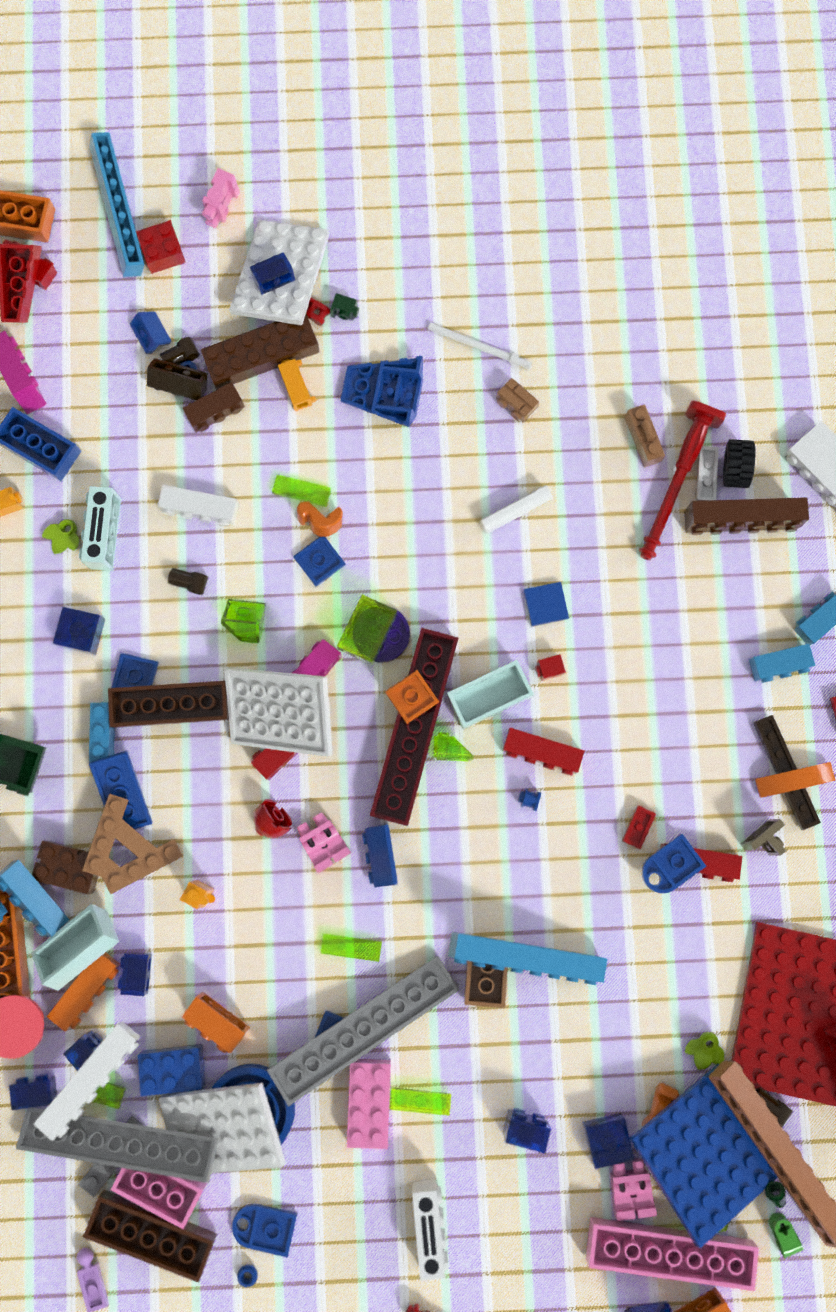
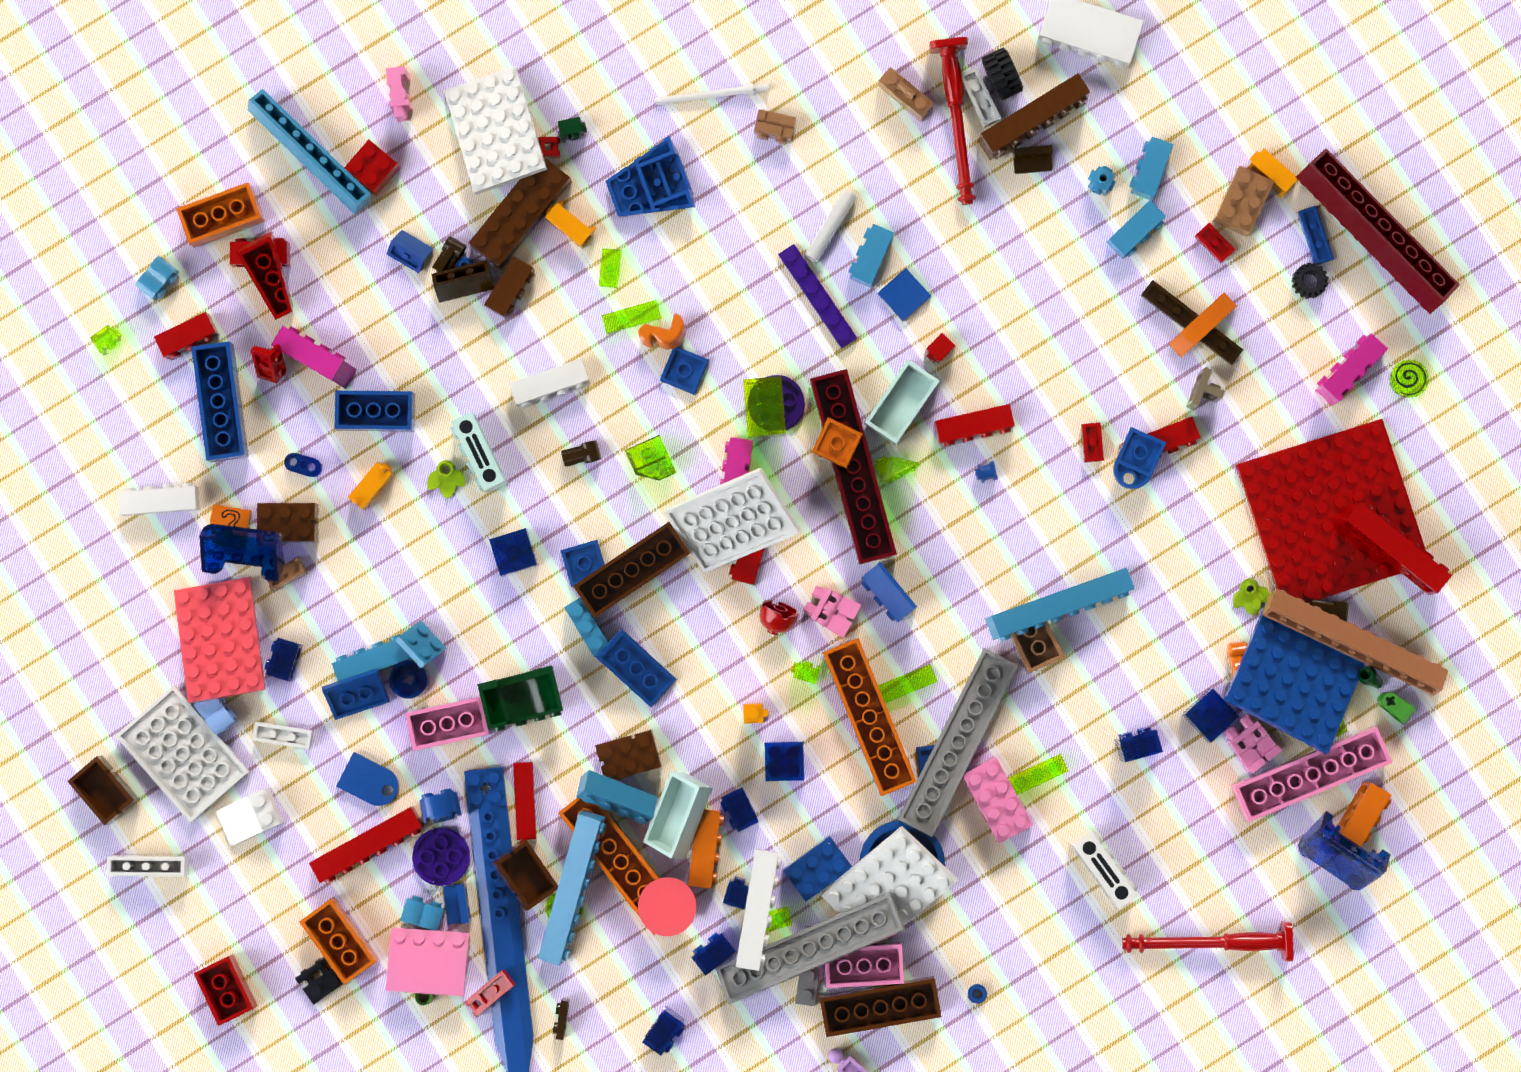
camera: 25 degrees left, 5 degrees up
(113, 827) = (649, 699): medium nougat plate -> none
(199, 954) = (784, 761): none -> clear blue brick
(215, 1023) = (832, 808): orange brick -> none
(267, 884) = (805, 671): none -> clear neon green brick
(268, 1229) = (972, 949): blue tile -> none
(272, 273) = (494, 138): clear blue brick -> none
(298, 960) = (869, 717): none -> orange brick
(308, 440) = (610, 268): none -> clear neon green plate
(470, 563) = (817, 296): none -> dark purple plate
(536, 554) = (871, 255): none -> dark azure brick
(723, 551) = (1032, 159): none -> dark brown panel
(774, 603) = (1097, 185): none -> dark azure brick

